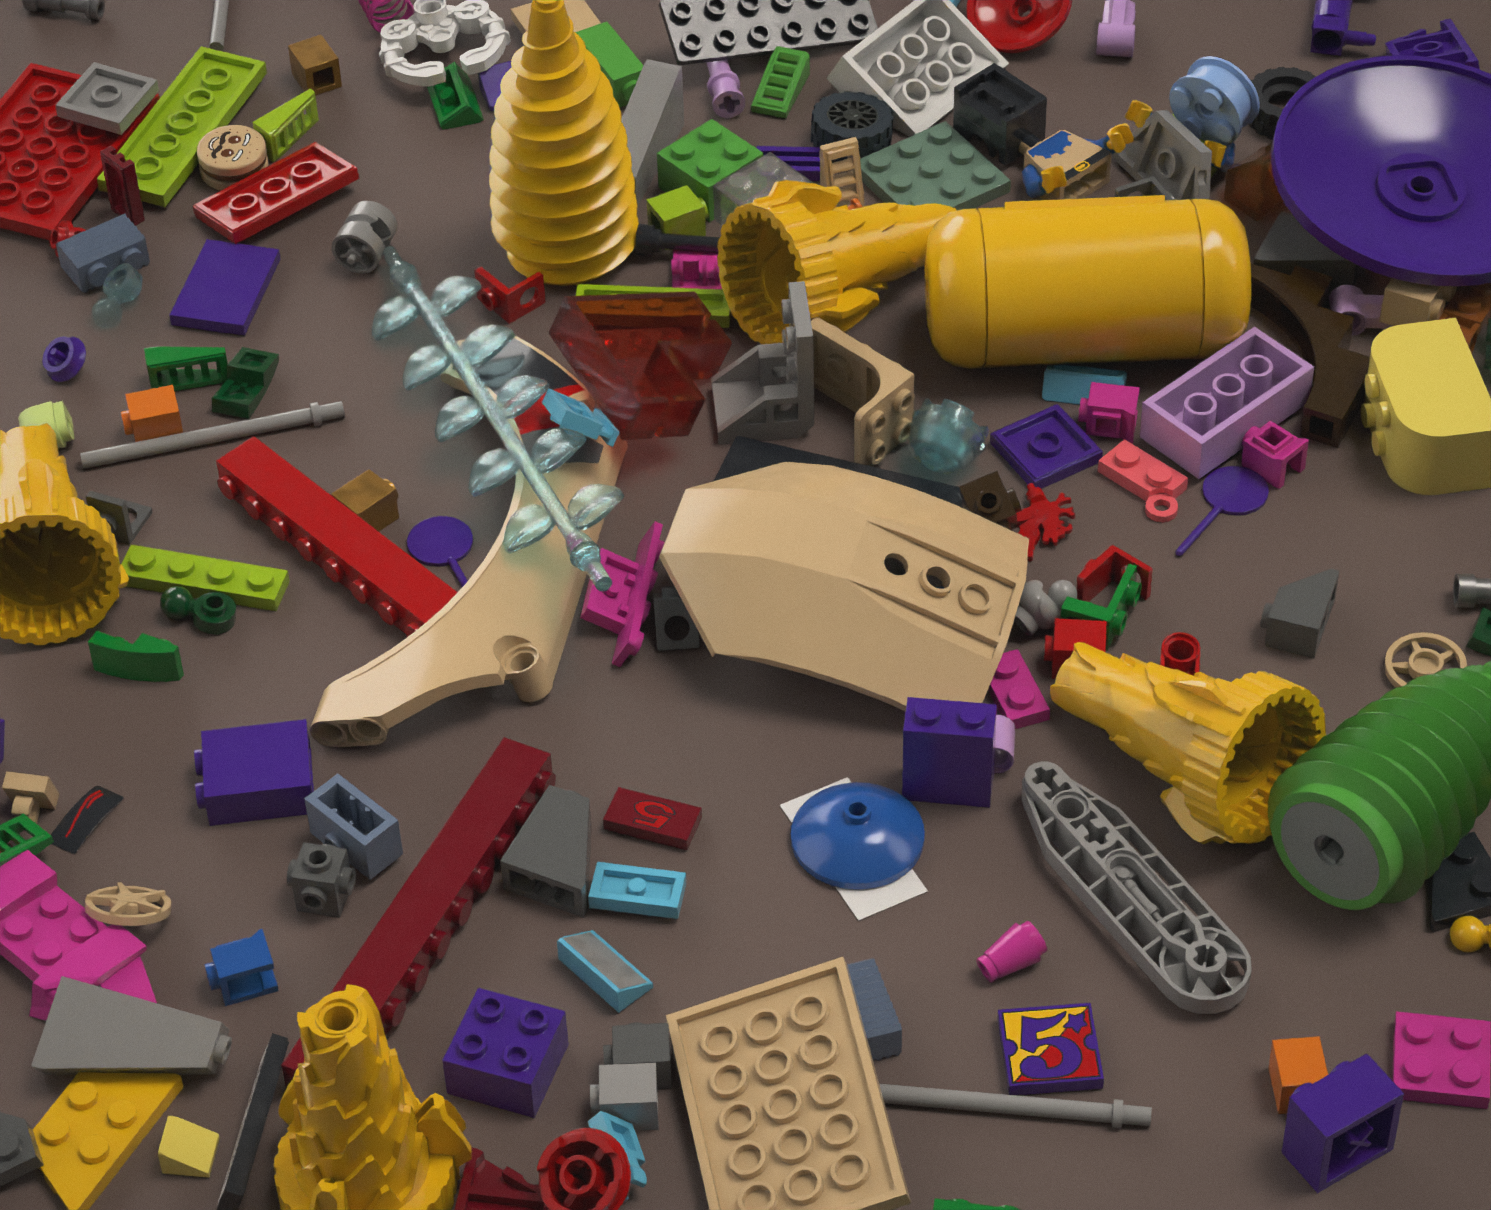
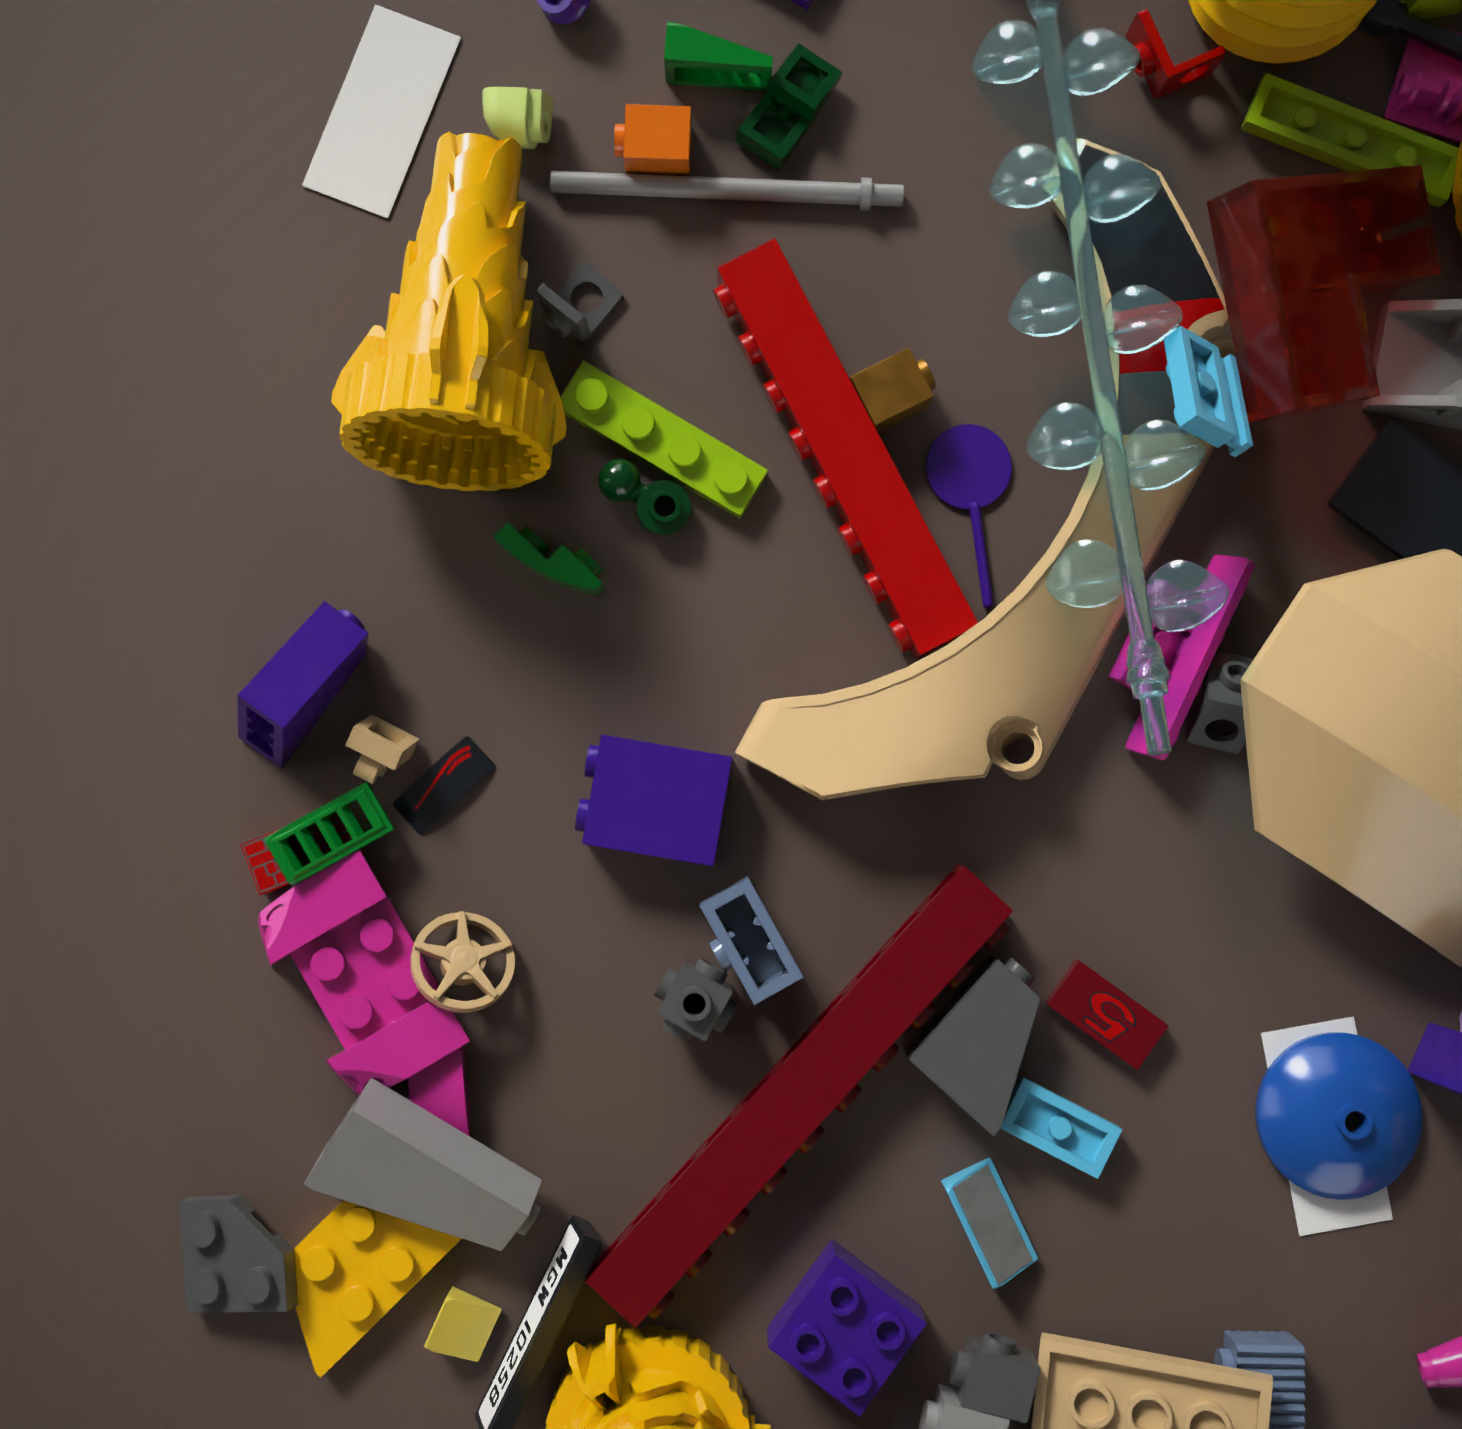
camera: 15 degrees right, 40 degrees up
(242, 969) = (573, 1098): blue window -> none

